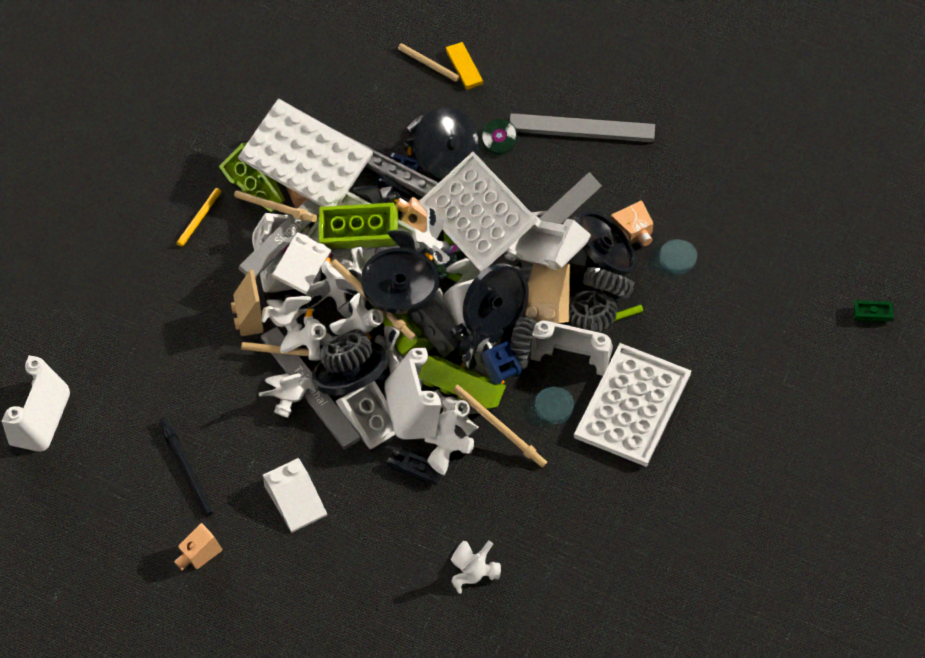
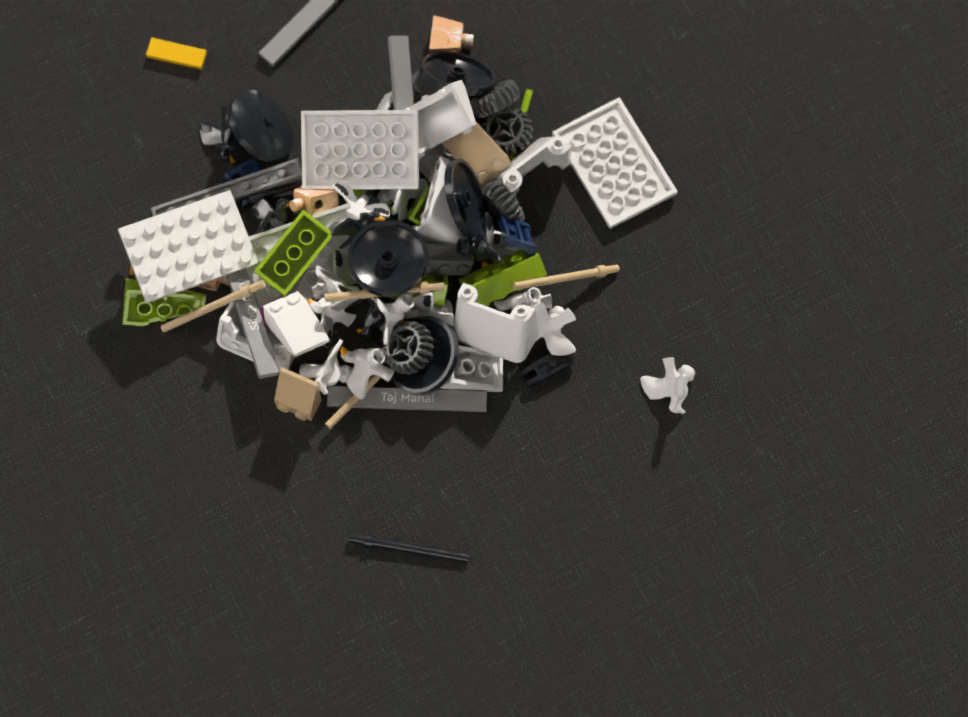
camera: 55 degrees left, 15 degrees up
(37, 421) = (285, 647): white windscreen -> none
(197, 219) = (162, 375): yellow bar -> none
(198, 548) = (501, 580): light nougat torso -> none
(287, 391) = (401, 420): white animal -> none
(294, 495) = (504, 479): white slope -> none
(428, 62) = (149, 79): tan bar -> none
(499, 136) = (275, 78): clear green tile -> none
(554, 405) = (568, 222): clear light blue tile -> none
(678, 256) = (502, 27): clear light blue tile -> none

